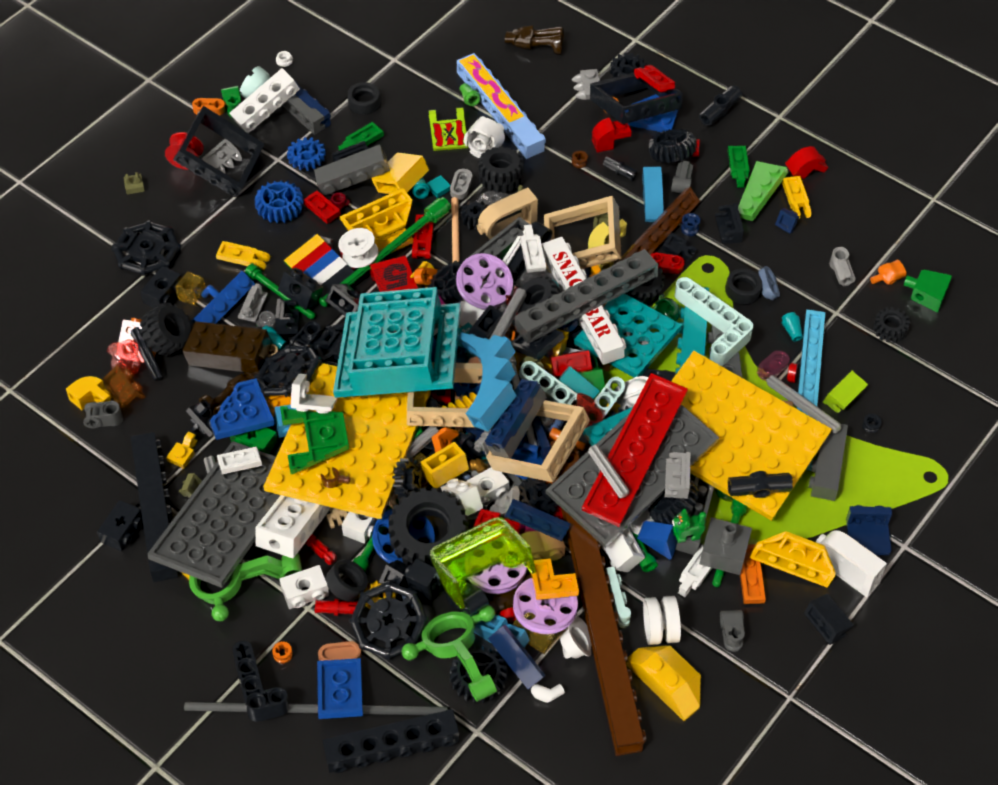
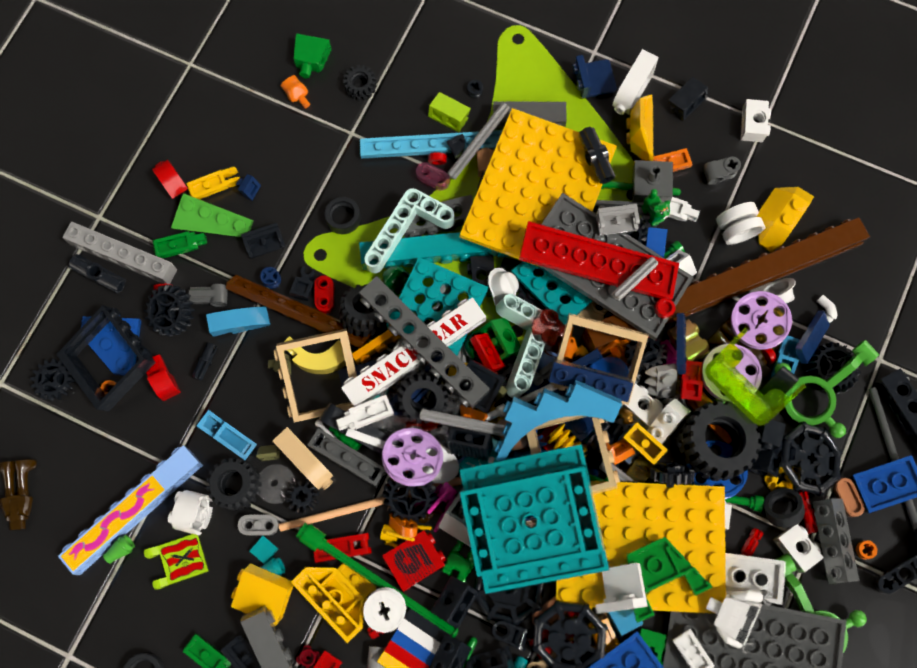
camera: 100 degrees left, 20 degrees up
(257, 484) = (738, 616): none -> white torso
(290, 623) = (835, 541): none -> dark grey brick
(334, 482) = (703, 536): reddish brown piece -> none
(548, 172) = (226, 435): none -> dark azure slope
(548, 585) = (749, 315): light orange plate -> none
(574, 503) = (664, 308): none -> red tile
(578, 383) = (513, 340): teal tile -> none
(579, 155) = (200, 411): reddish brown bush -> none
(584, 80) = (80, 419): light grey plate -> none
(619, 598) = (721, 265): light aqua plate -> none
(655, 78) = (81, 339): red plate -> none
(736, 122) = (119, 253): none -> light grey brick
(769, 283) = (325, 196): sand blue plate -> none
(792, 325) = (380, 166): teal cone -> none
(799, 674) = (750, 129): none -> white brick
(802, 386) = (457, 145): none -> black tile
(840, 264) = (299, 130): light grey piece -> none

